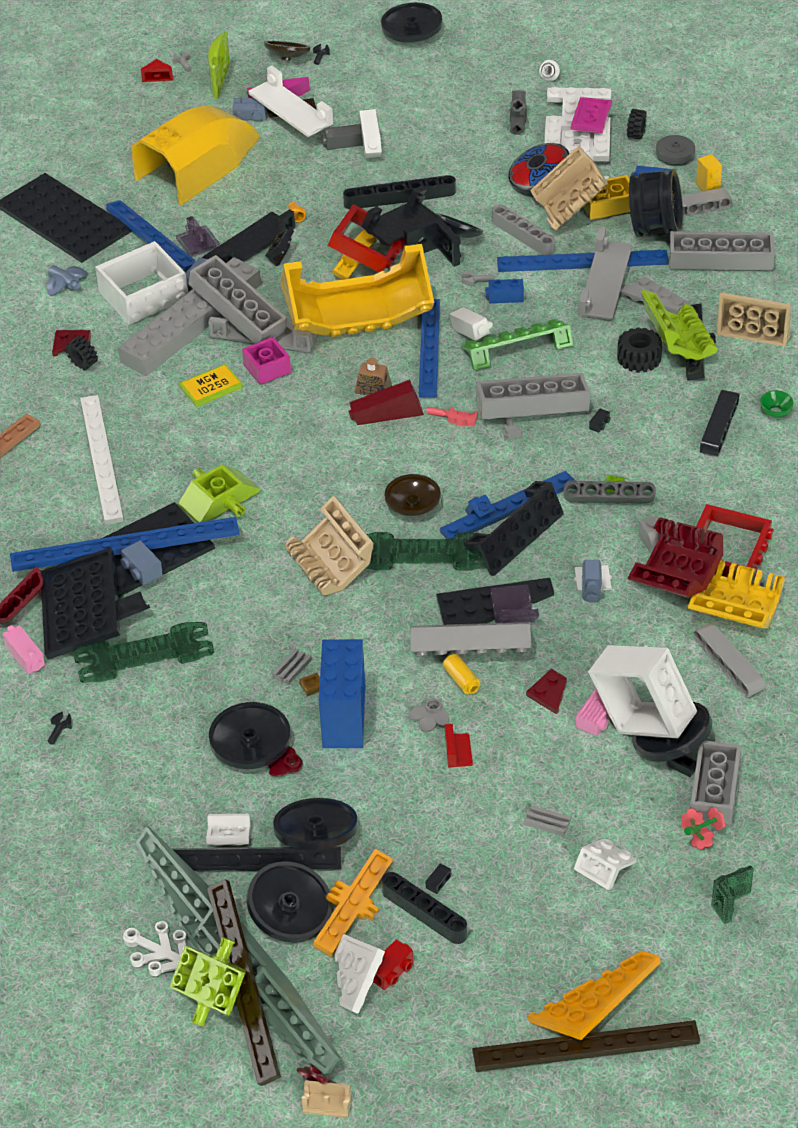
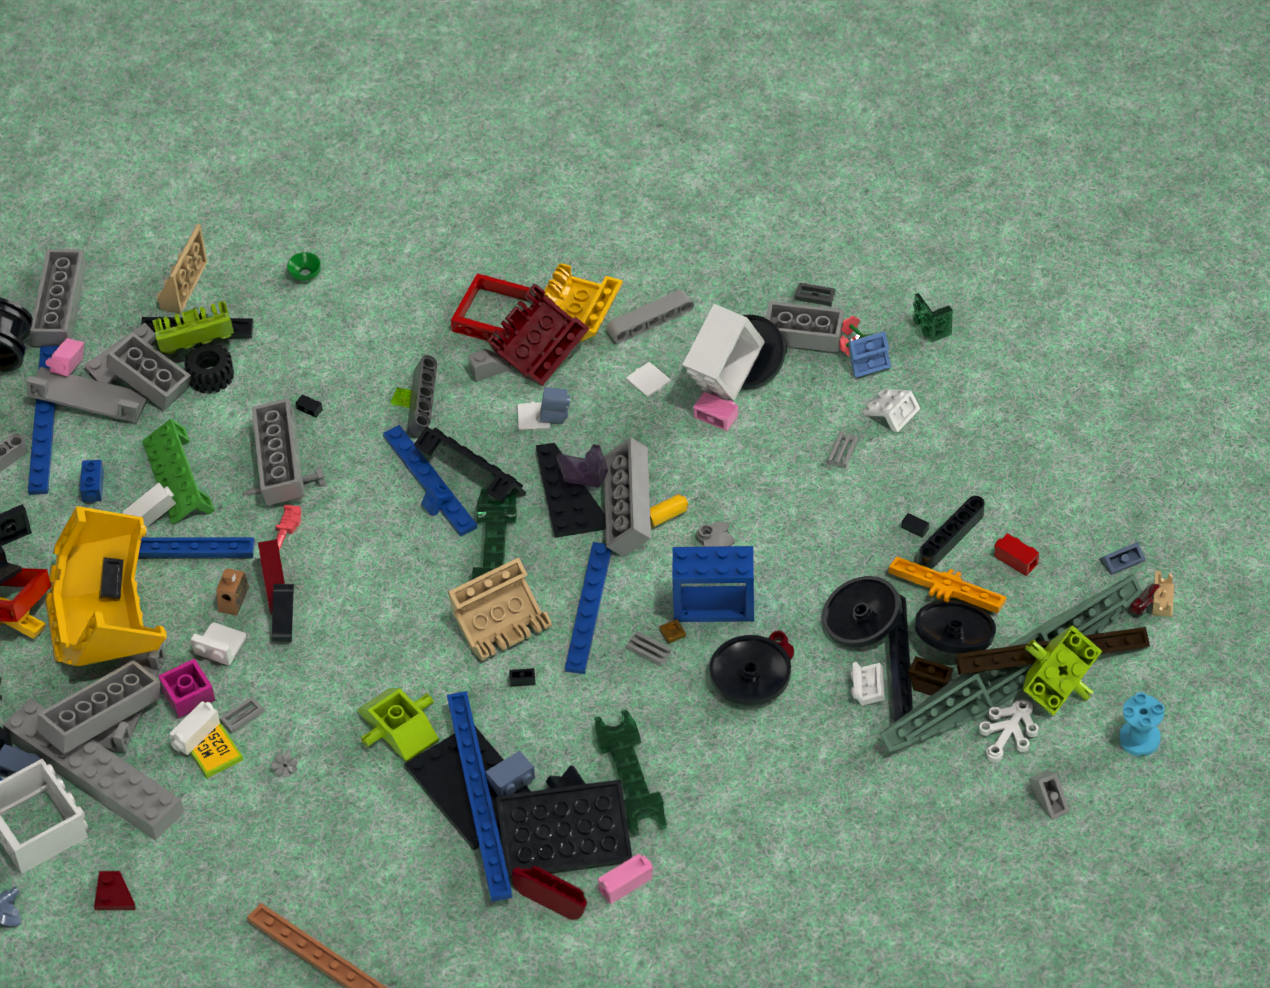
camera: 90 degrees left, 5 degrees up
(59, 726) = (727, 839): black bar -> none
(71, 977) = (1049, 793): none -> light grey slope
(81, 353) = (151, 867): black tyre -> none
(101, 460) = (323, 841): white plate -> none
(136, 1061) = (1141, 732): none -> medium azure piece
(183, 427) = (284, 764): none -> light grey plant
(221, 366) = (194, 728): none -> white brick
(240, 403) = (244, 717): none -> light grey tile
(240, 879) = (929, 676): none -> dark brown slope
(264, 576) = (522, 677): none -> black piece
(316, 381) = (218, 643): none -> white bracket
(341, 409) = (282, 612): none -> black beam
(341, 622) = (588, 609): none -> blue plate
(356, 970) = (1029, 574): white plate -> none
(386, 1068) = (1123, 558): none -> sand blue slope
(390, 307) = (111, 578): none -> black tile
(412, 494) = (415, 543): dark brown dish -> none
(457, 748) = (757, 516): red panel -> none
(470, 278) = (64, 515): light grey bar -> none
(548, 690) = (683, 448): dark red wing -> none
(590, 1046) = (1090, 424): dark brown plate -> none
(593, 1000) = (1047, 416): light orange wing -> none
(624, 306) = (148, 371): none -> light grey brick
(644, 259) = (66, 357): none -> bright pink brick
(672, 835) = (869, 354): none -> medium blue slope
(719, 422) = (324, 311): black beam -> none
(772, 813) = (815, 297): none -> dark grey tile

